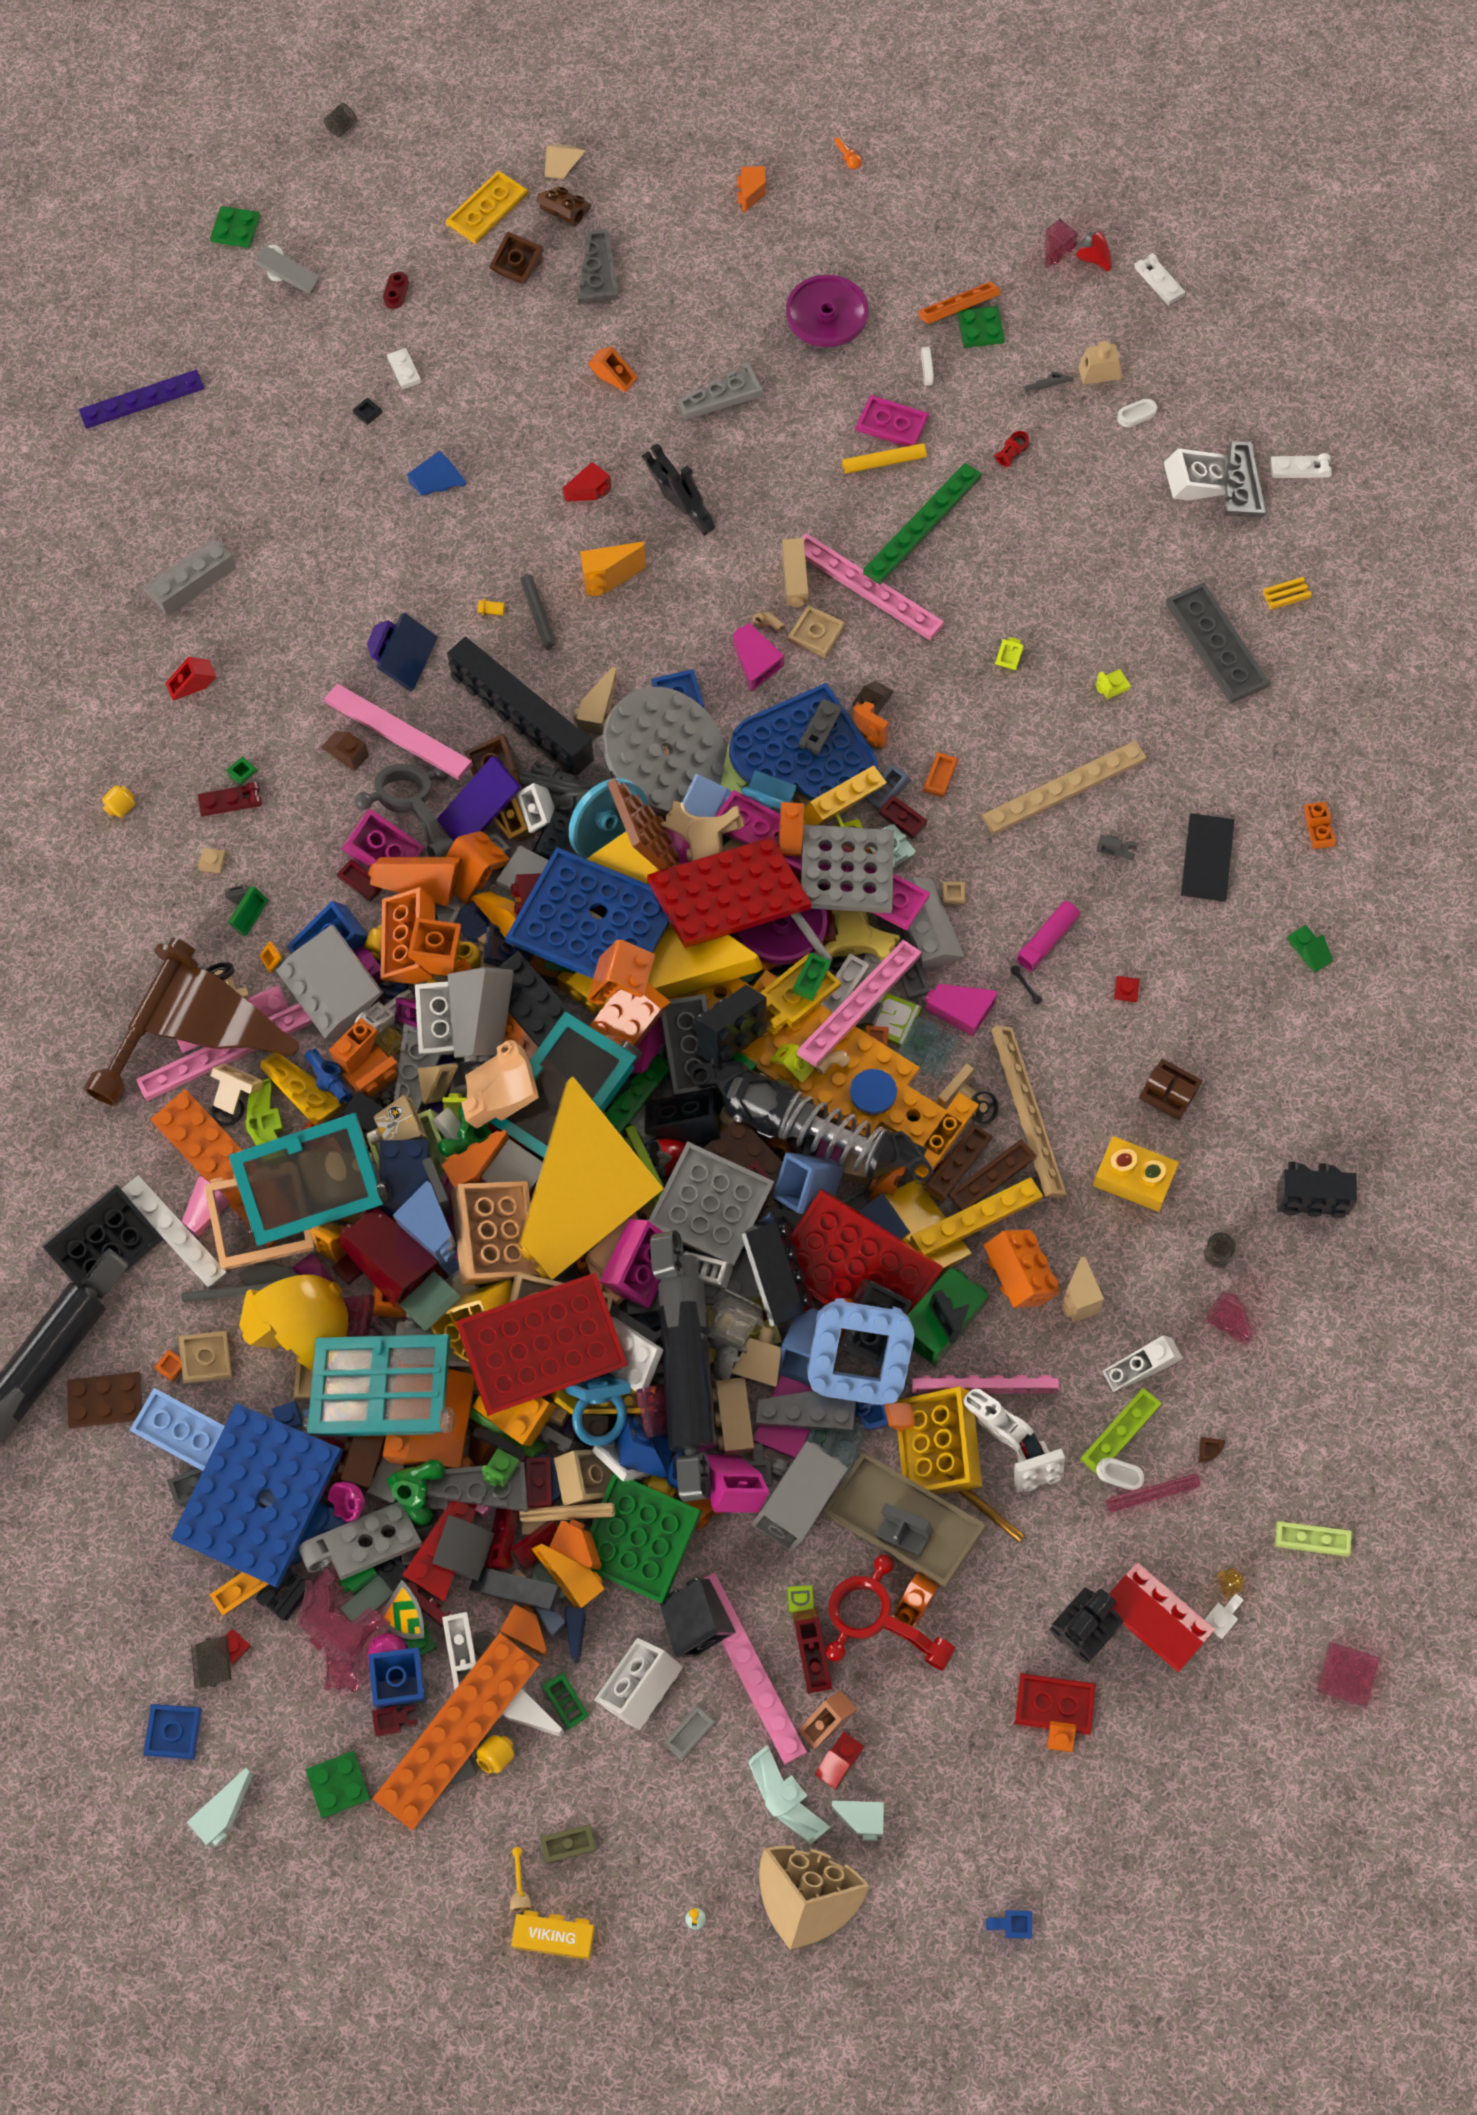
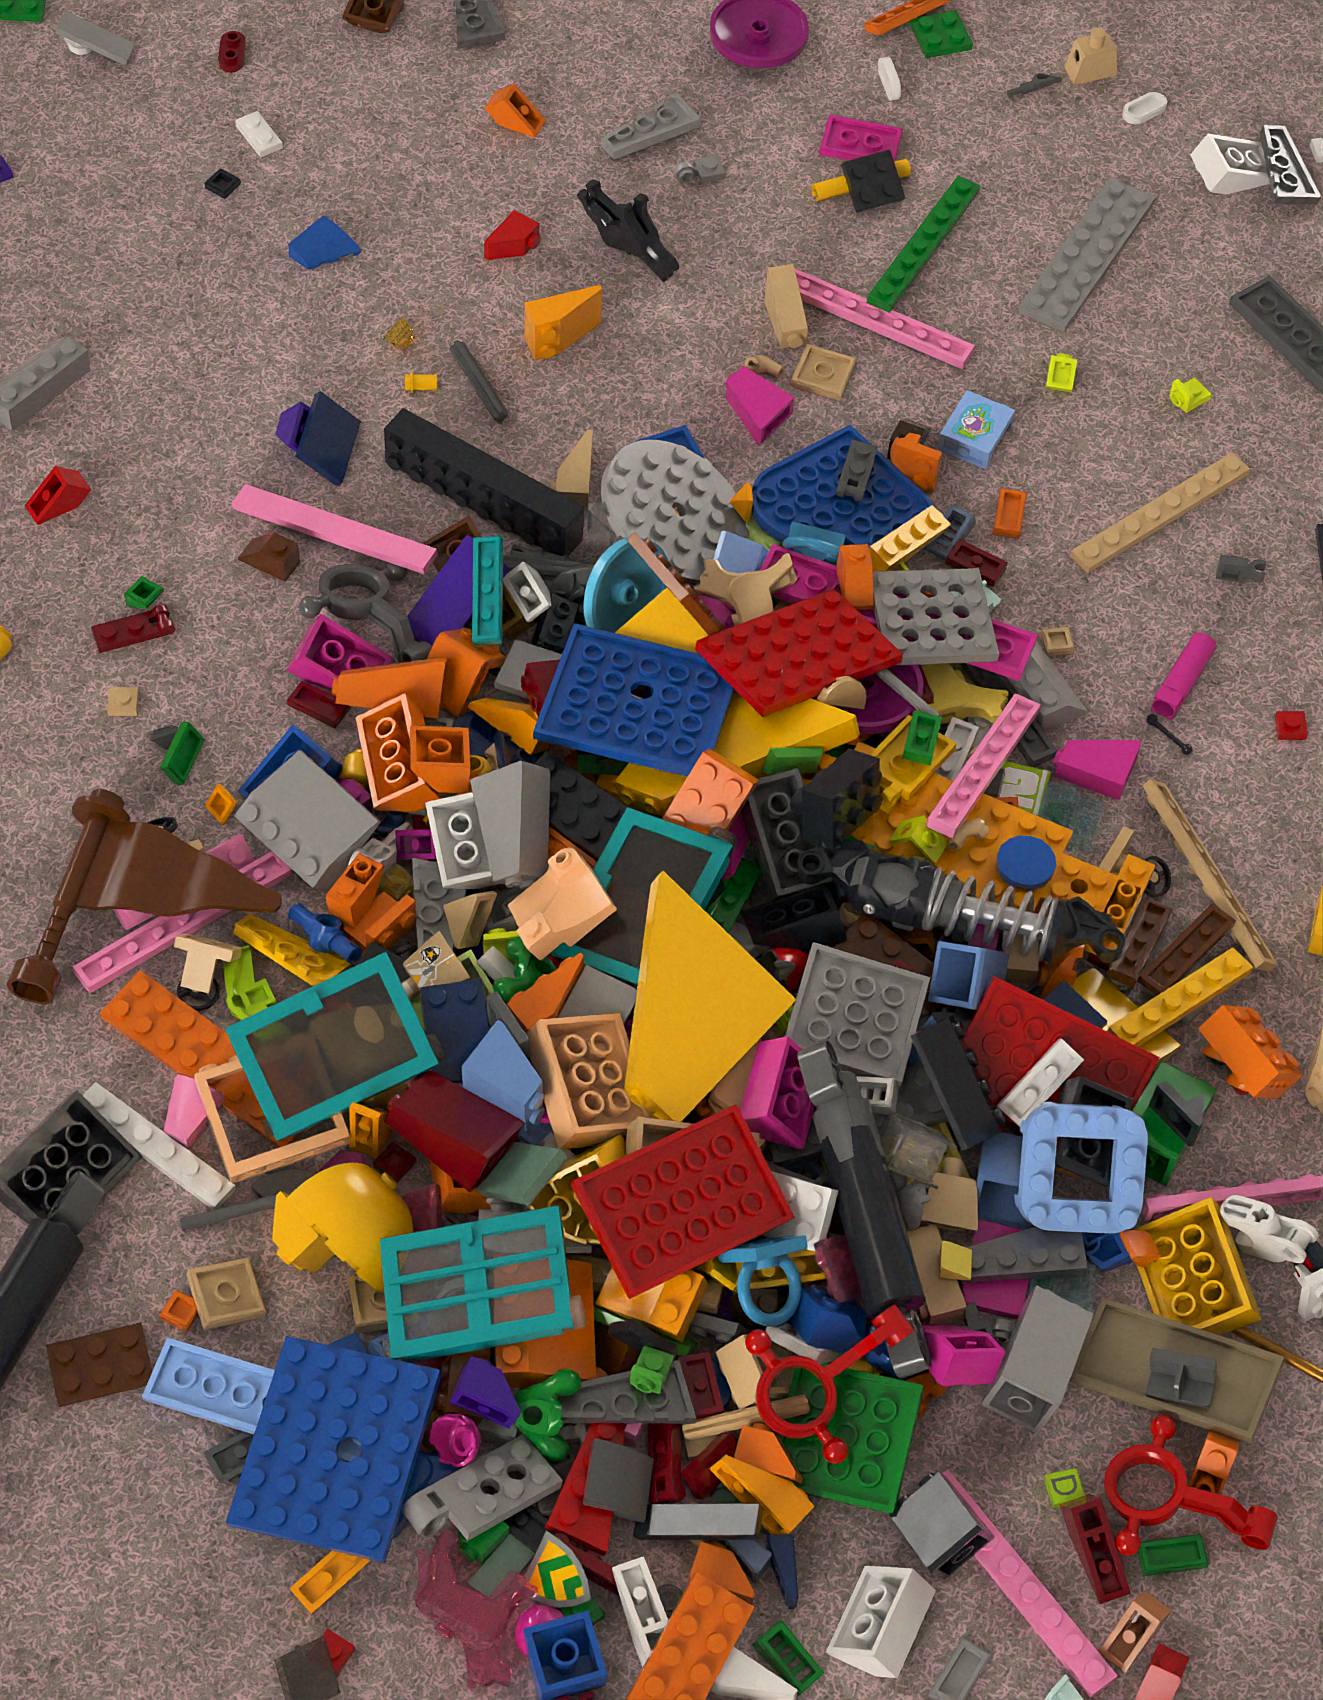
camera: 15 degrees left, 10 degrees down
(283, 1607) = (392, 1591): black piece -> none
(371, 1469) = (485, 1393): none -> dark purple slope
(482, 563) = (400, 334): none -> clear yellow plate
(500, 805) = (487, 590): none -> teal tile
(622, 968) = (693, 739): orange piece -> none
(678, 1465) = (890, 1327): none -> red piece
(704, 984) = (791, 758): none -> bright green tile
(722, 744) = (743, 502): none -> light orange slope
(751, 1411) = (955, 1261): none -> light yellow slope
(758, 931) = (844, 692): none -> tan tile
(759, 435) = (705, 168): none -> light grey plate
(845, 1276) = (1040, 1081): none -> white plate
(870, 1663) = (1172, 1555): none -> green tile
(892, 462) = (873, 181): none -> black plate
(927, 697) = (975, 429): none -> light blue panel
(1012, 448) = (1009, 156): red connector -> none
(1057, 545) = (1086, 255): none -> light grey plate

